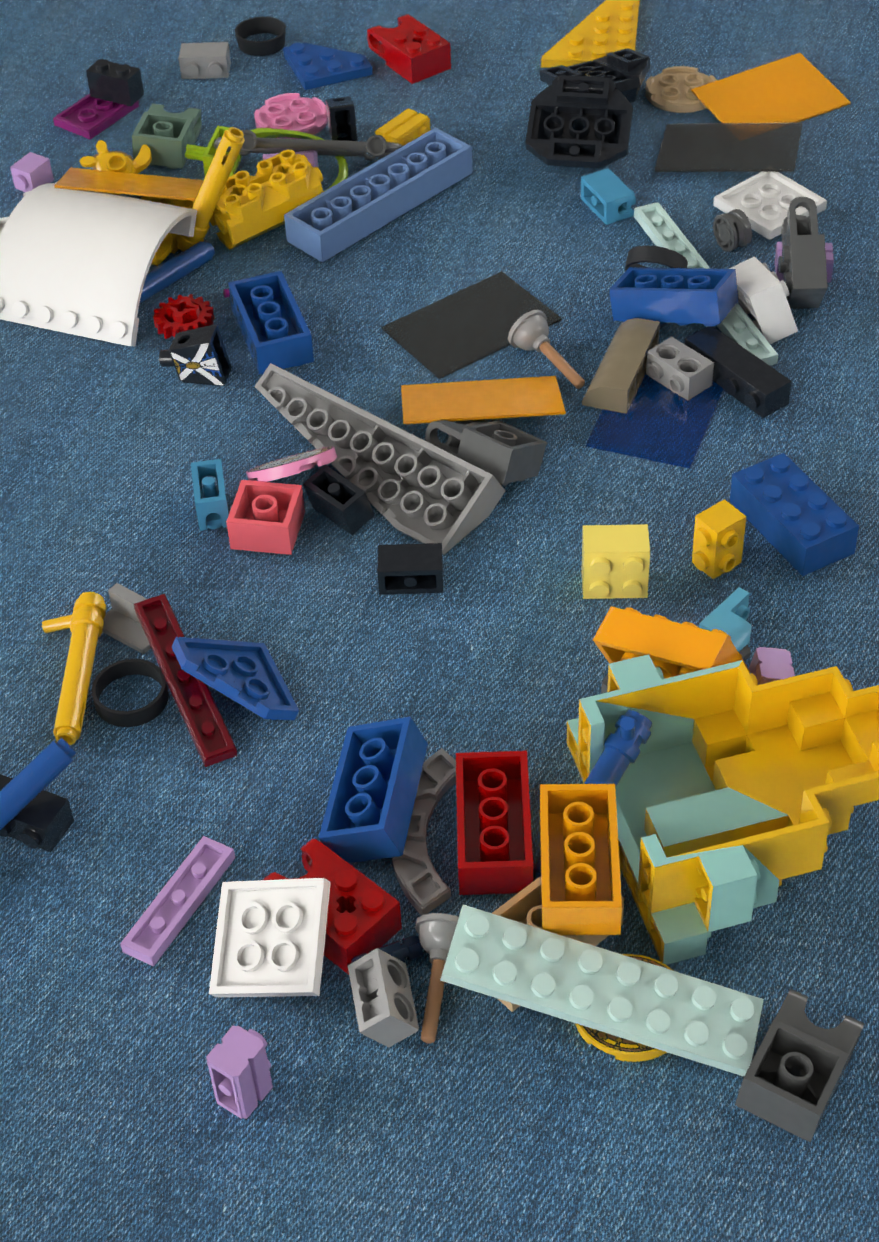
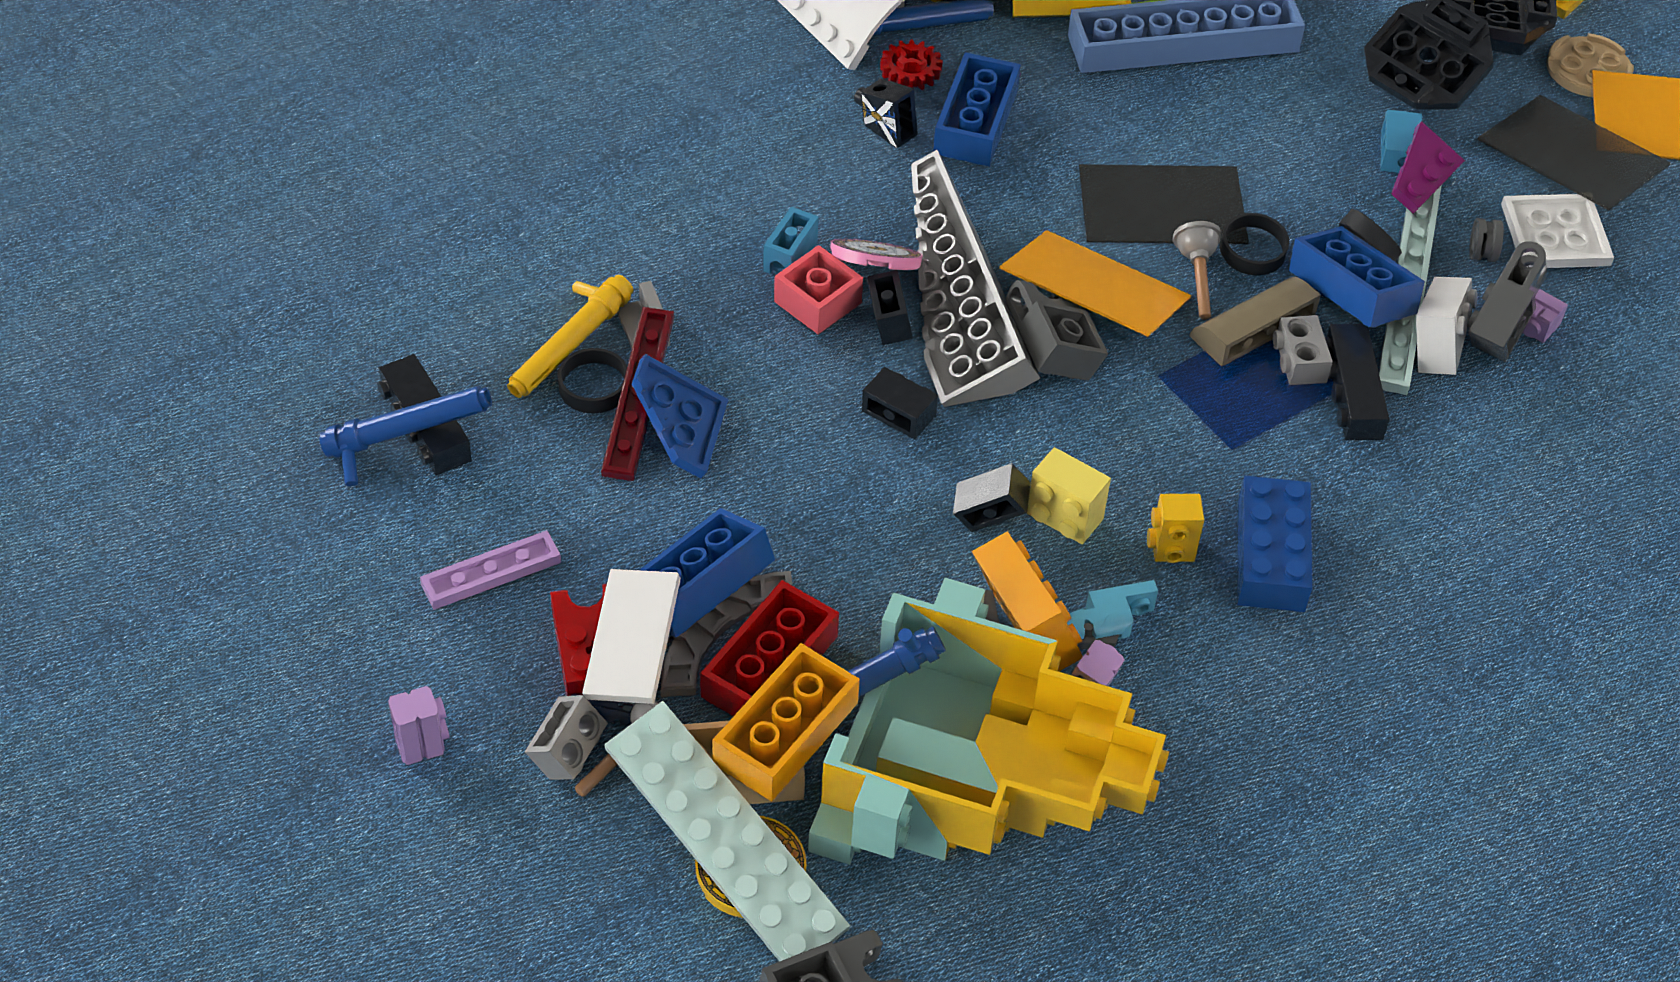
camera: 30 degrees right, 5 degrees up
(270, 938) = (520, 639): white plate -> none
(378, 871) = (631, 636): none -> white tile
(558, 596) = (991, 497): none -> black brick
(573, 297) = (1257, 221): none -> black tyre
(648, 202) = (1425, 168): none -> magenta wing

